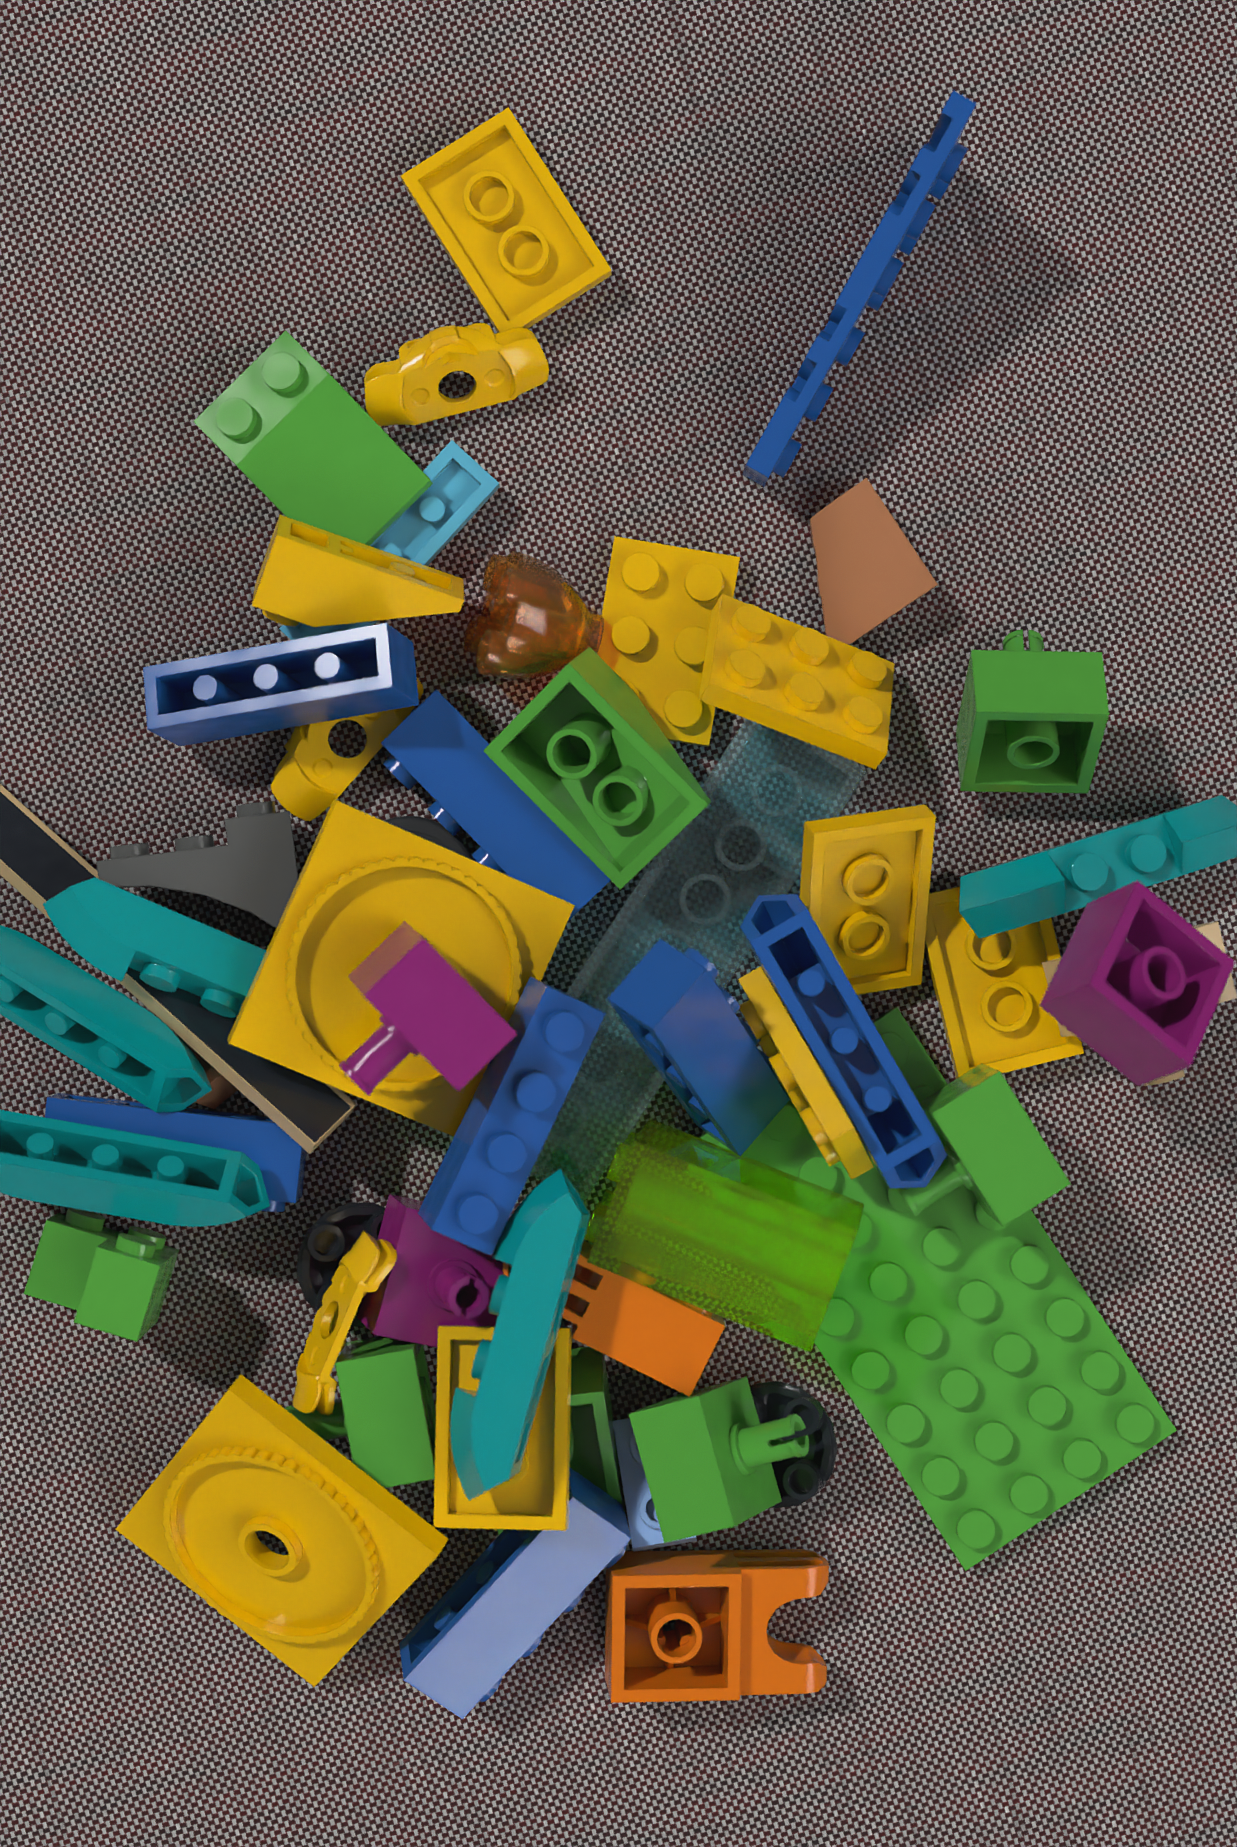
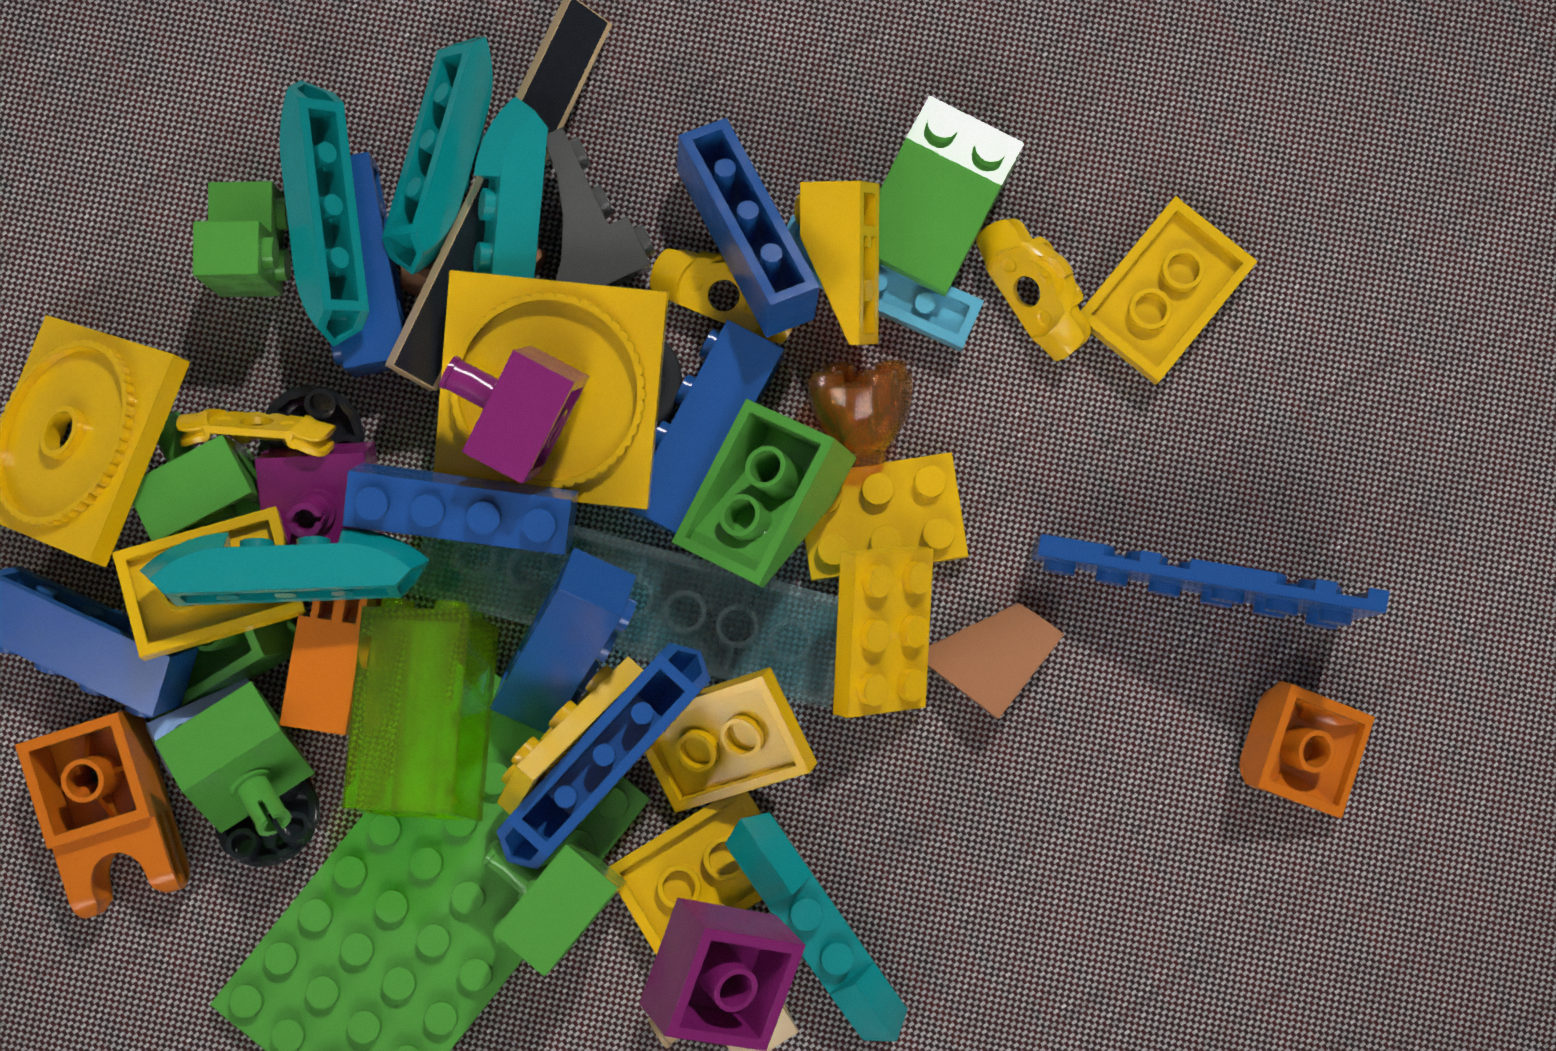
camera: 75 degrees right, 5 degrees down
(1031, 718) = (915, 828): bright green brick -> none
(1081, 250) = (1305, 748): none -> orange slope

